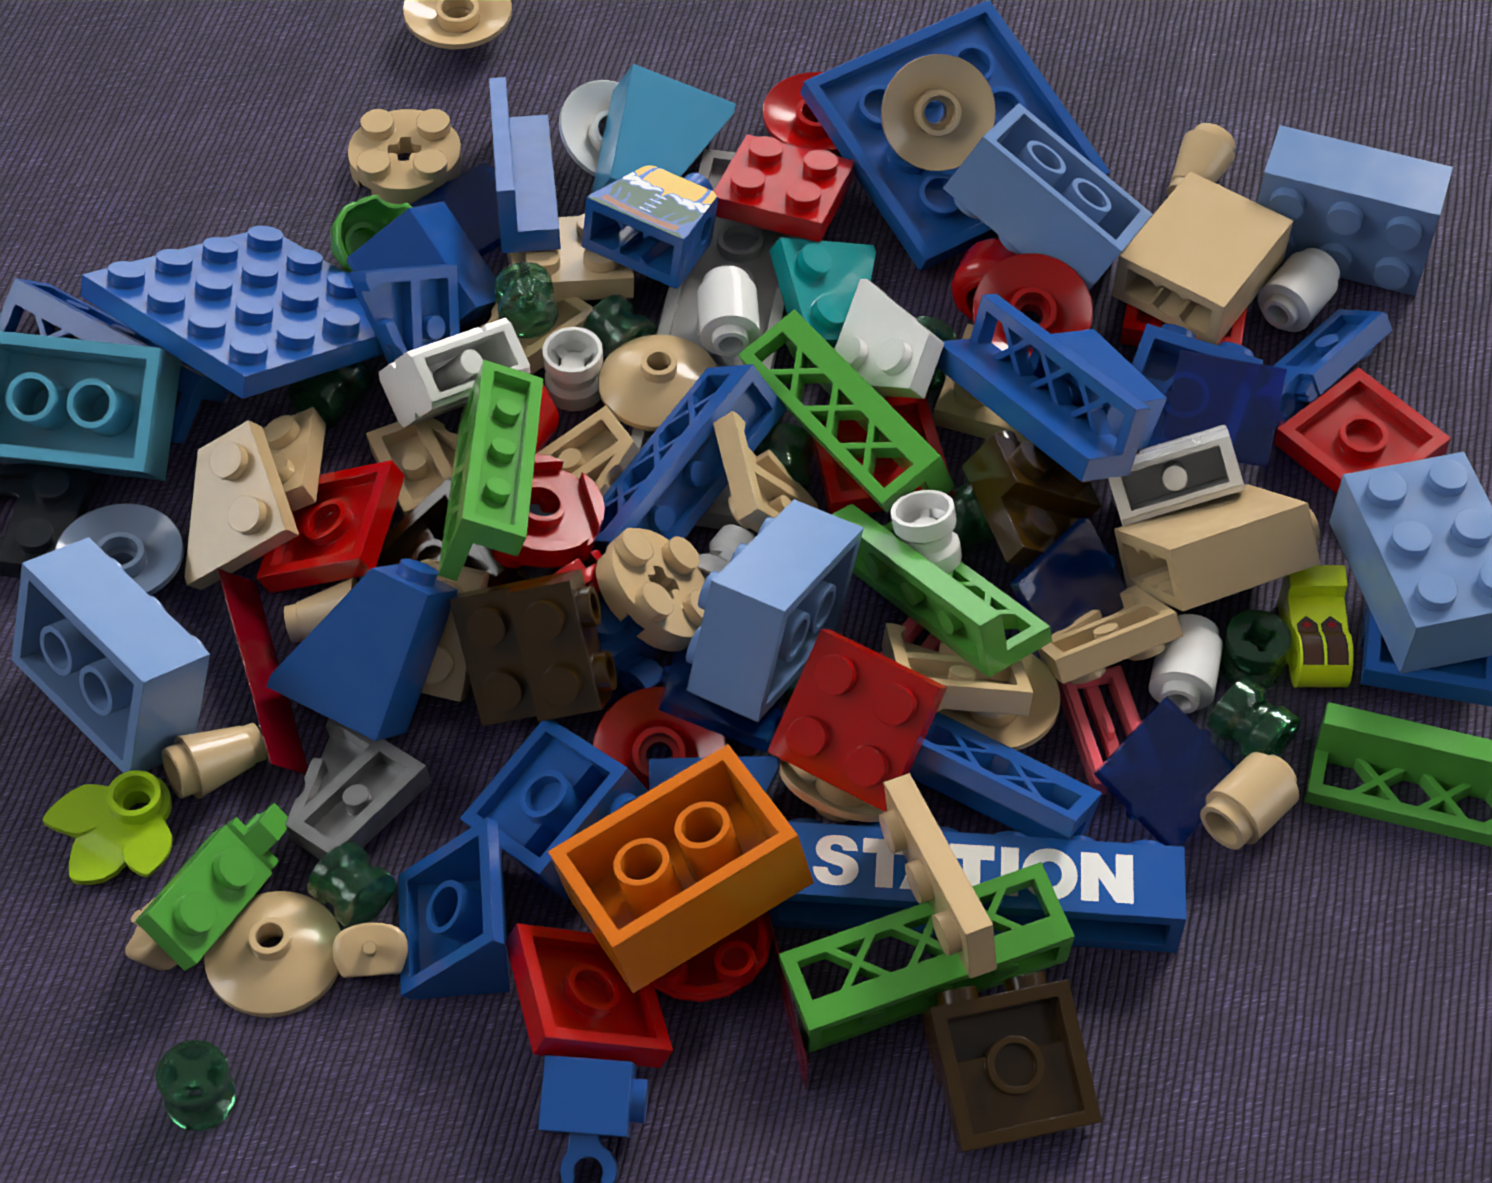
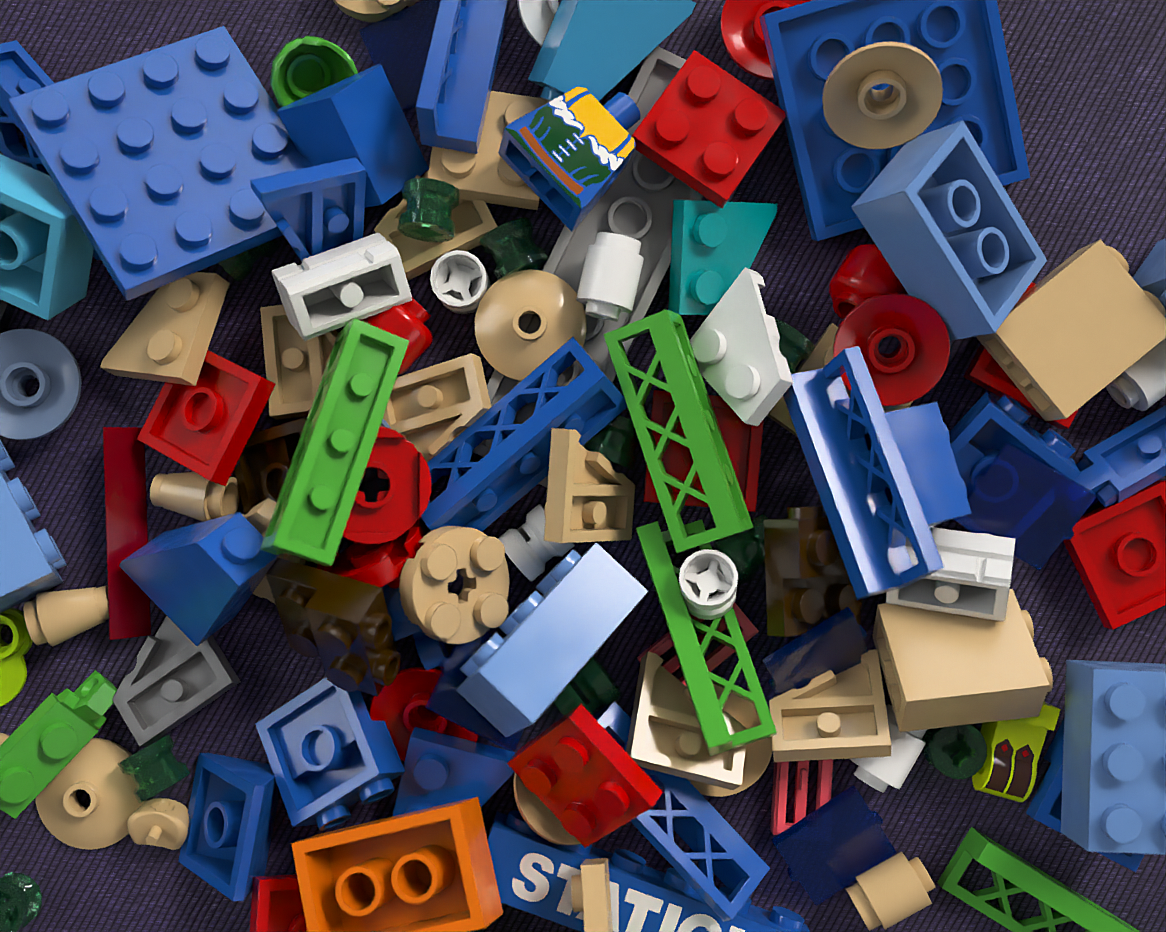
camera: 25 degrees right, 35 degrees up
(235, 506) = (125, 373): tan wing -> none
(1205, 152) = (1120, 186): tan cone -> none
(1253, 721) = (922, 820): clear green wheel -> none

